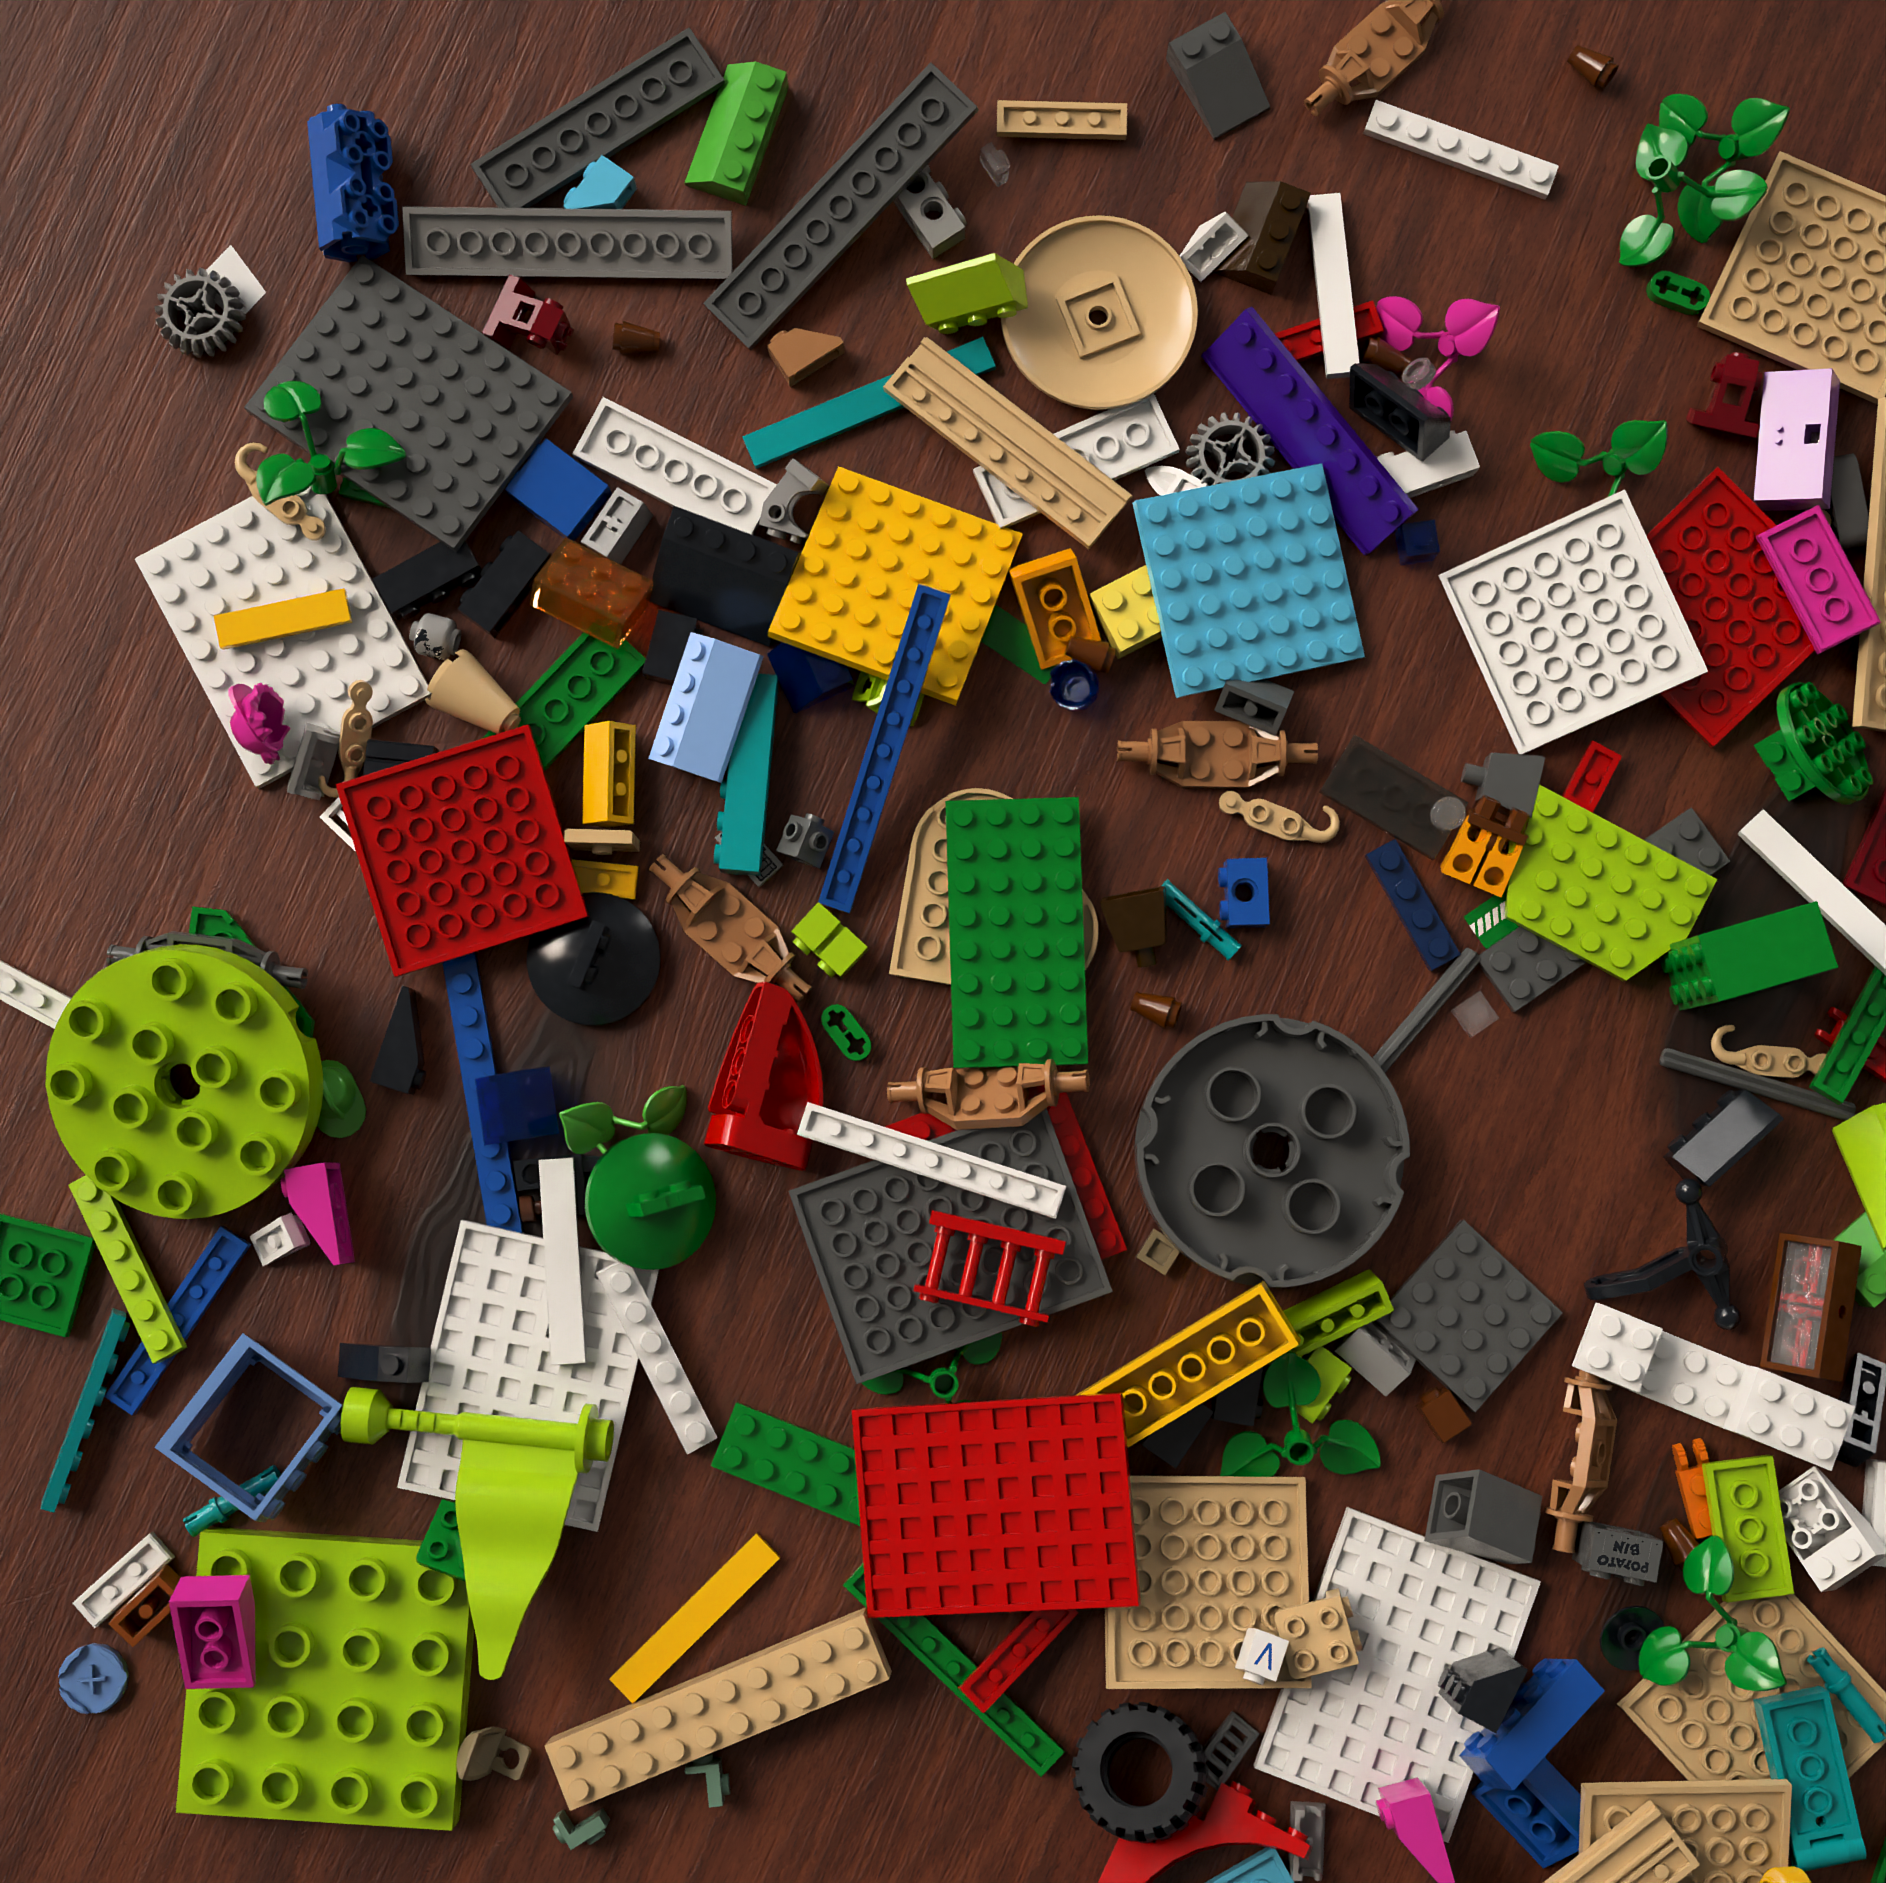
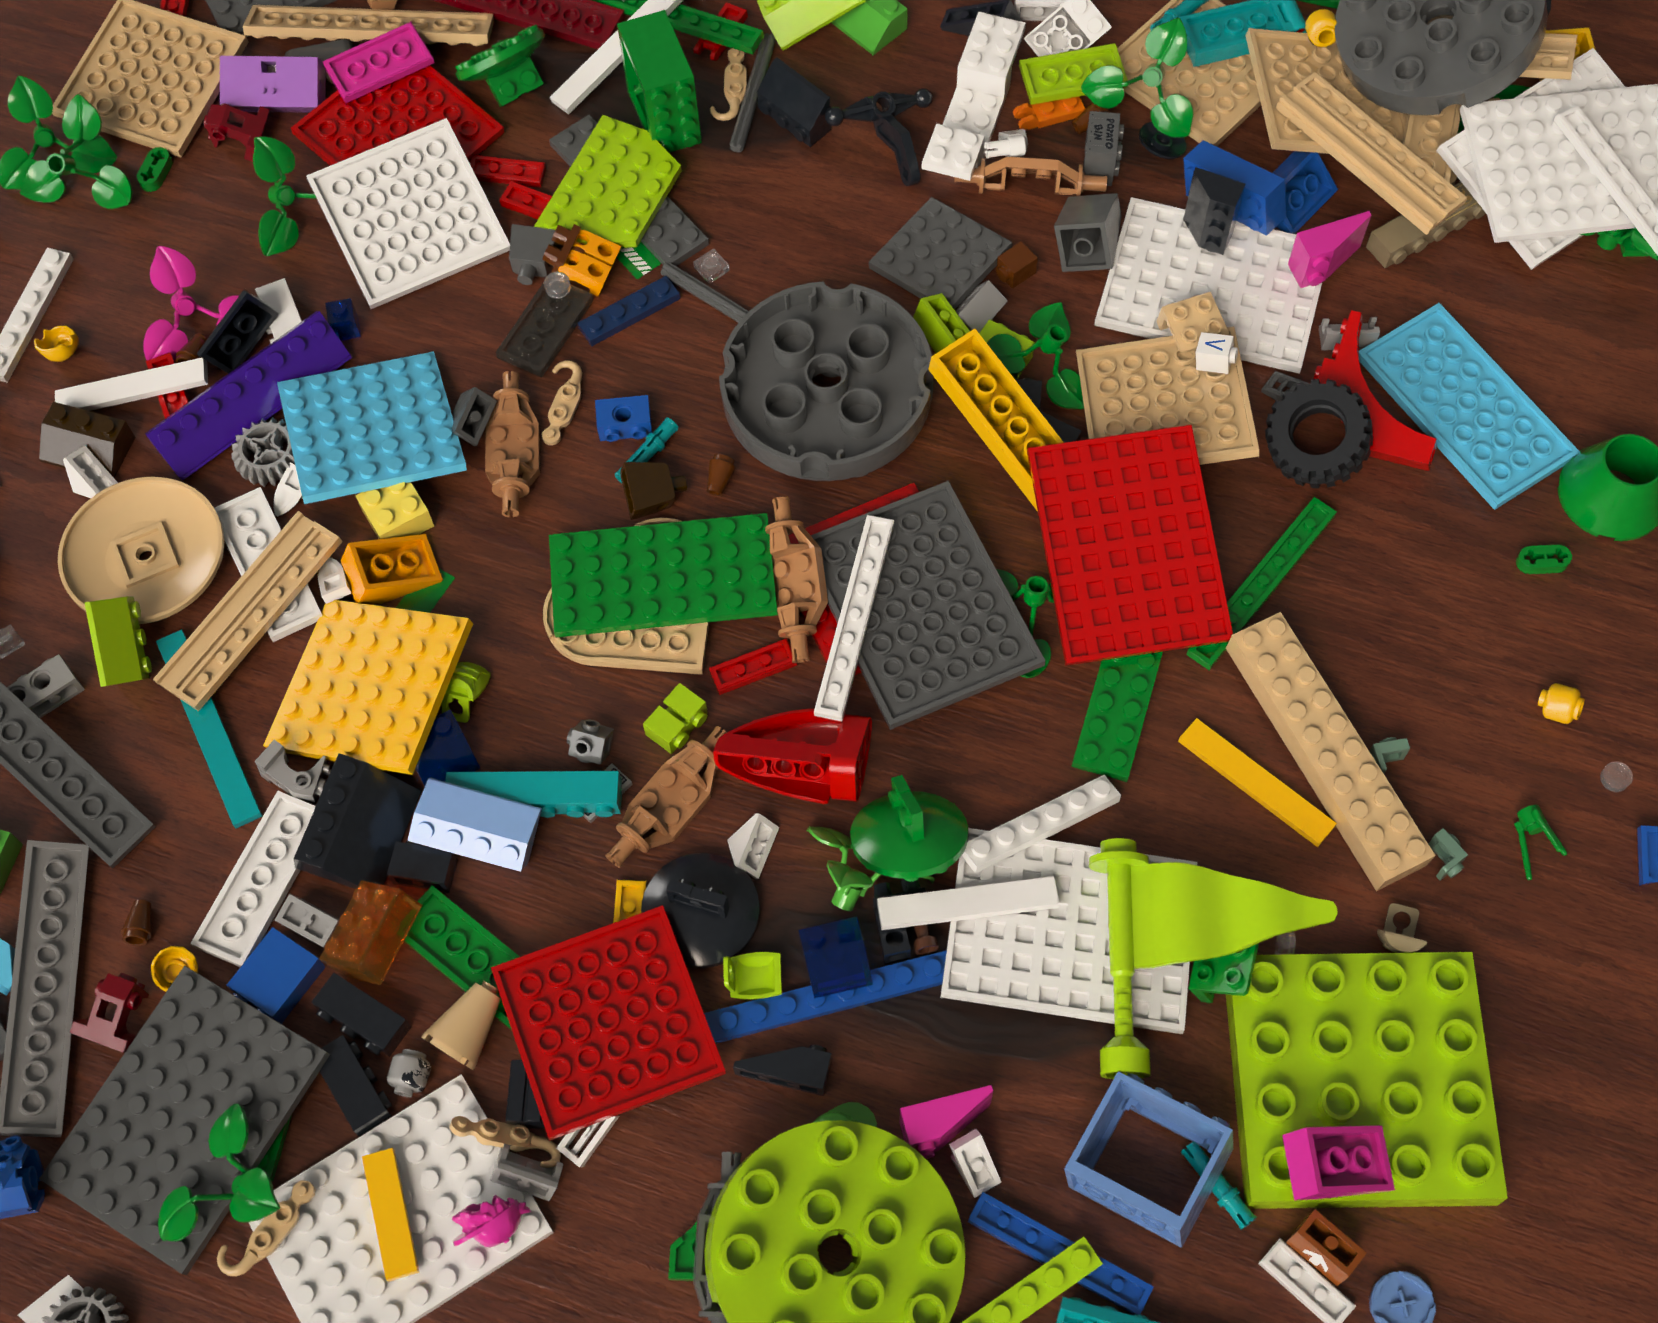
camera: 90 degrees left, 20 degrees down
(384, 1362) = (1076, 1055): black slope -> none
(509, 1013) = (753, 975): none -> lime piece
(578, 377) = (169, 963): none -> yellow hair
(602, 841) = (595, 900): tan plate -> none
(609, 774) = (535, 907): yellow brick -> none
(667, 1020) = (752, 844): none -> white slope
(803, 352) = (160, 782): medium nougat slope -> none
(852, 1027) = (749, 698): green beam -> none
(884, 747) = (509, 672): blue plate -> none
(893, 1033) = (752, 666): none -> red tile
(978, 1235) = (916, 548): red fence -> none
(1014, 1655) = (1249, 536): red plate -> none
(1043, 540) = (333, 581): none -> white plate
(1074, 685) = (456, 548): clear blue hair -> none
(1091, 652) = (430, 536): reddish brown cone -> none
(1158, 1252) = (913, 460): dark tan plate -> none
(1407, 190) = (57, 343): none -> yellow hair
(1418, 373) = (206, 322): clear tile -> none
(1641, 1429) = (1009, 144): none -> white beam
(1646, 750) = (507, 170): none -> red tile
(1811, 1306) = (910, 44): brick -> none

